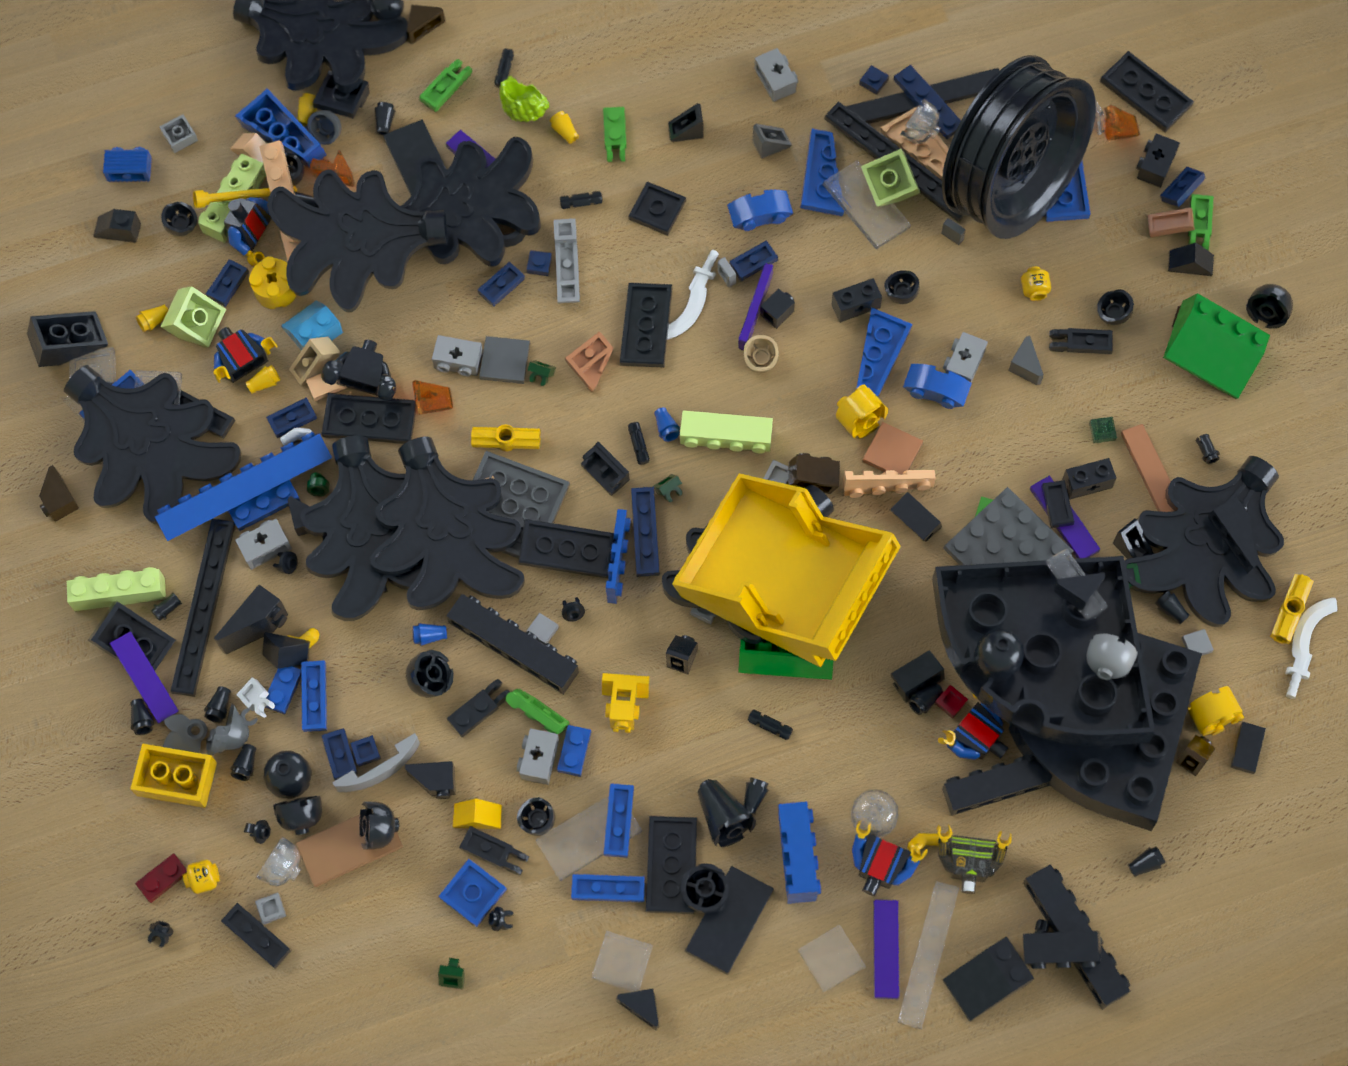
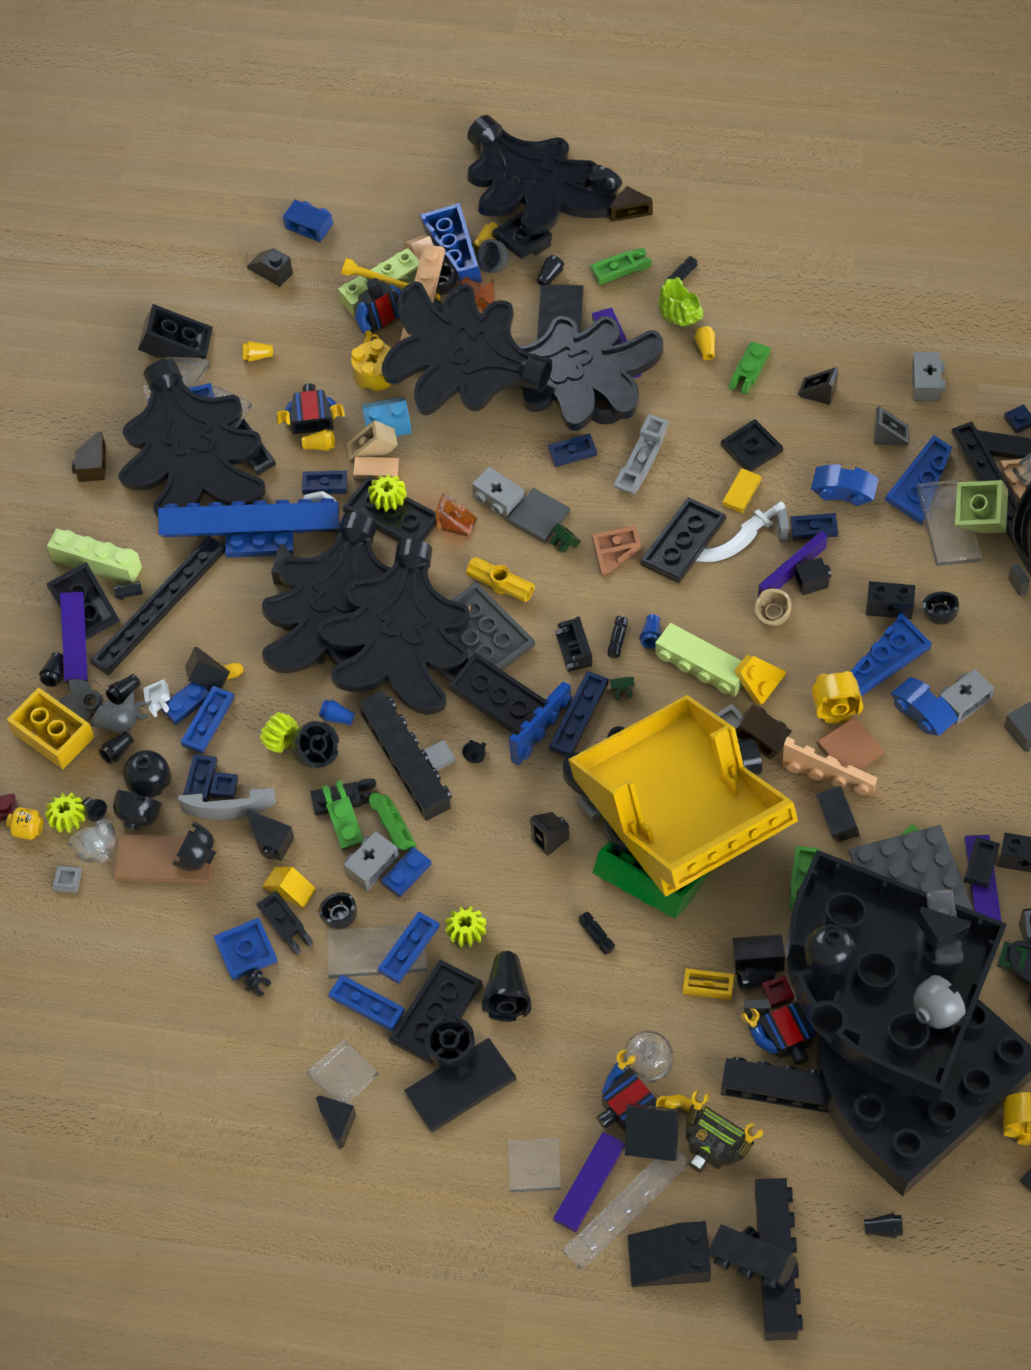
camera: 30 degrees right, 10 degrees down
(178, 133) = (366, 213): light grey piece -> none
(180, 223) = (325, 285): black helmet -> none
(193, 317) = (290, 365): yellowish green slope -> none
(227, 282) = (335, 349): dark blue plate -> none
(227, 842) = (65, 812): none -> neon yellow gear
(256, 935) = (41, 894): black plate -> none
(257, 615) = (188, 629): black slope -> none
(258, 554) = (239, 574): light grey brick -> none
(287, 563) = (250, 599): black plate -> none
(318, 485) = (313, 546): dark green tile -> none
(356, 410) = (387, 492): none -> neon yellow gear
(362, 371) = (405, 462): black torso -> none
(389, 677) = (278, 732): none -> neon yellow gear
(451, 975) = (185, 1008): dark green tile -> none
(491, 729) = (343, 818): none -> bright green hinge
(539, 263) = (617, 447): dark blue plate -> none
(581, 199) = (686, 410): black axle -> none
(622, 712) = (465, 856): yellow tile -> none
(662, 781) = (459, 928): none -> neon yellow gear
(671, 255) = (741, 490): none -> yellow tile
(754, 794) = (545, 986): black cone -> none
(784, 425) = (758, 677): none -> yellow wing
(797, 852) = (554, 1056): blue wedge -> none
(870, 730) = (704, 992): none -> yellow tile
(917, 587) = (802, 861): none -> bright green hinge
(919, 881) = (651, 1132): none -> black tile
(945, 723) = (760, 1005): none -> dark grey tile
(1196, 754) = (988, 1149): dark brown slope -> none

